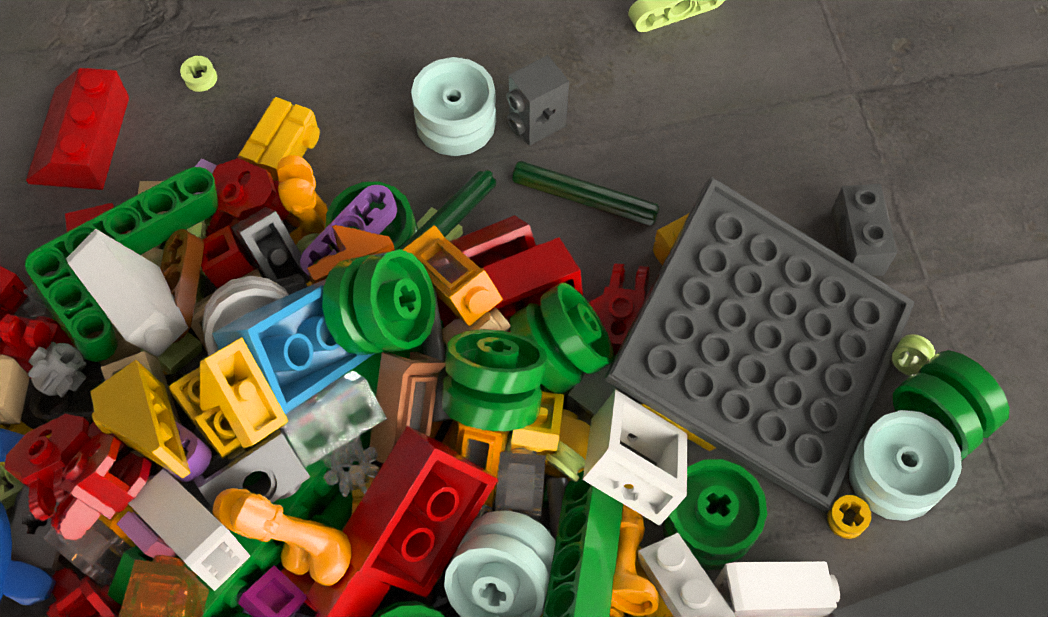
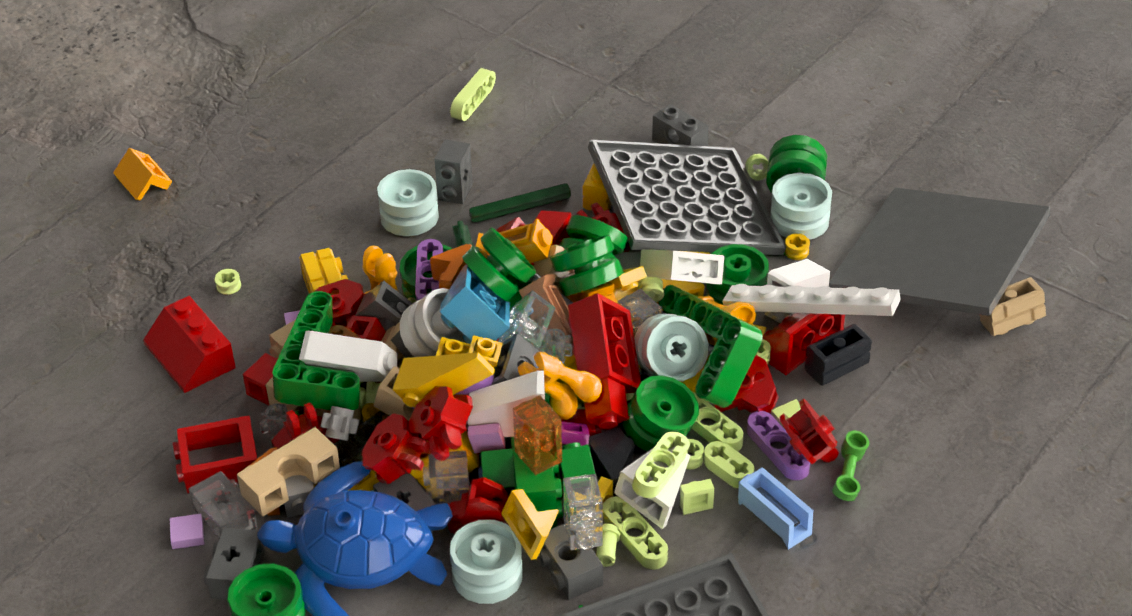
camera: 40 degrees left, 20 degrees down
(238, 386) = (478, 317): yellow slope -> none

